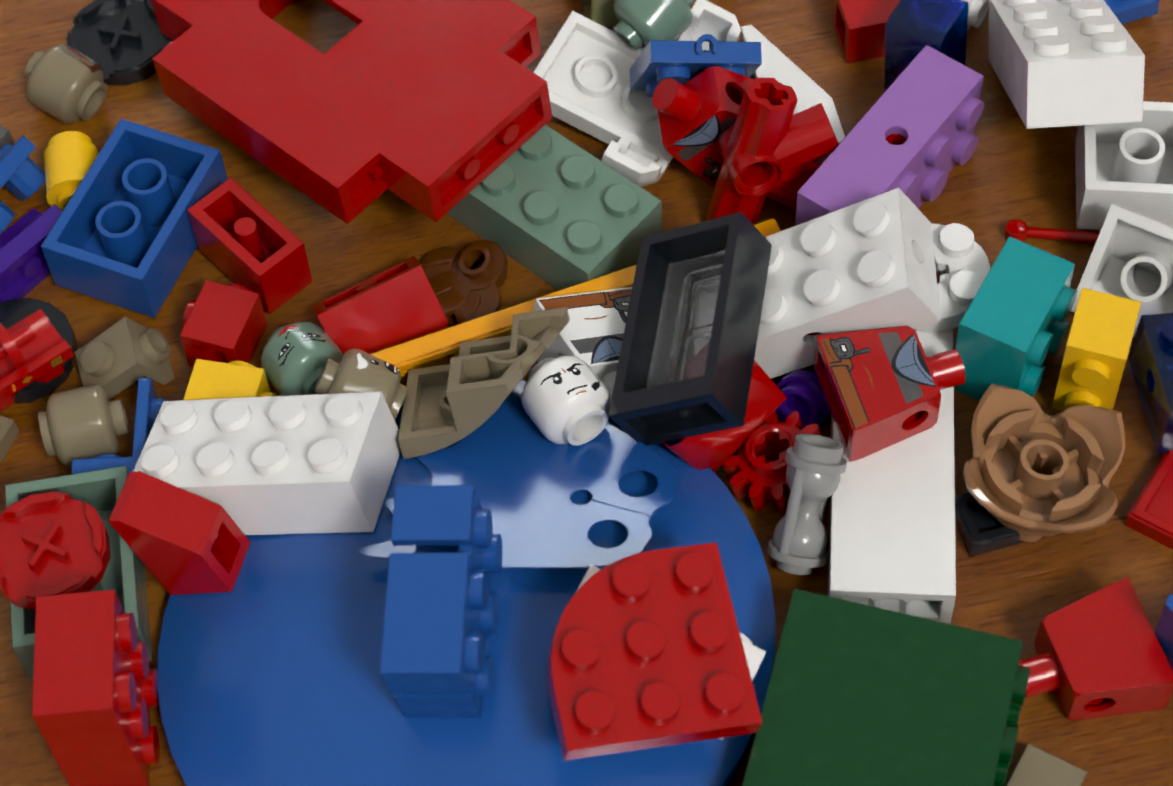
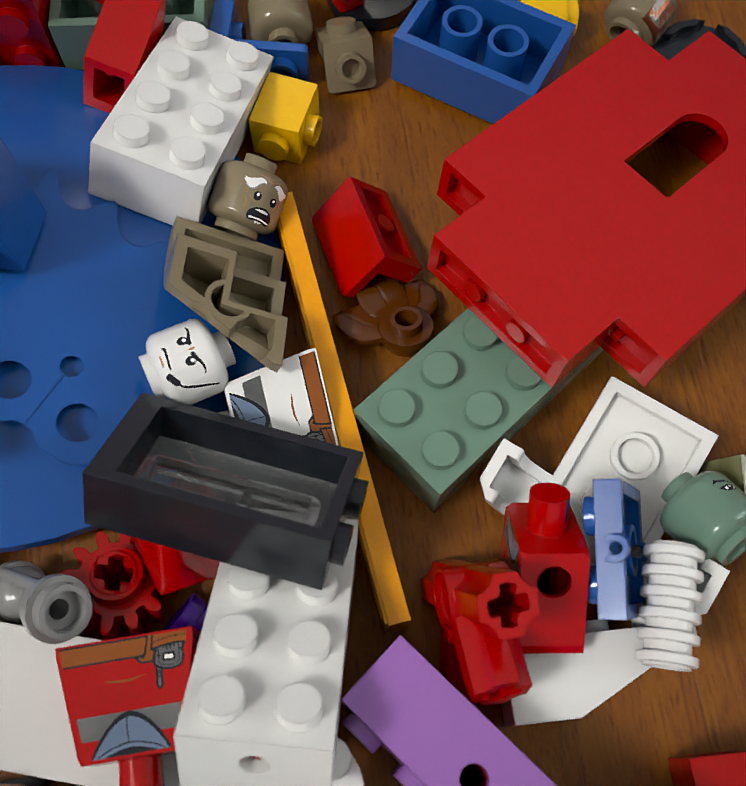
camera: 90 degrees right, 10 degrees up
(223, 324) = (362, 118): red brick -> none
(250, 244) = (435, 128): red brick -> none
(297, 357) = (314, 172): sand green head -> none
(739, 27) = (670, 605): none -> white piece

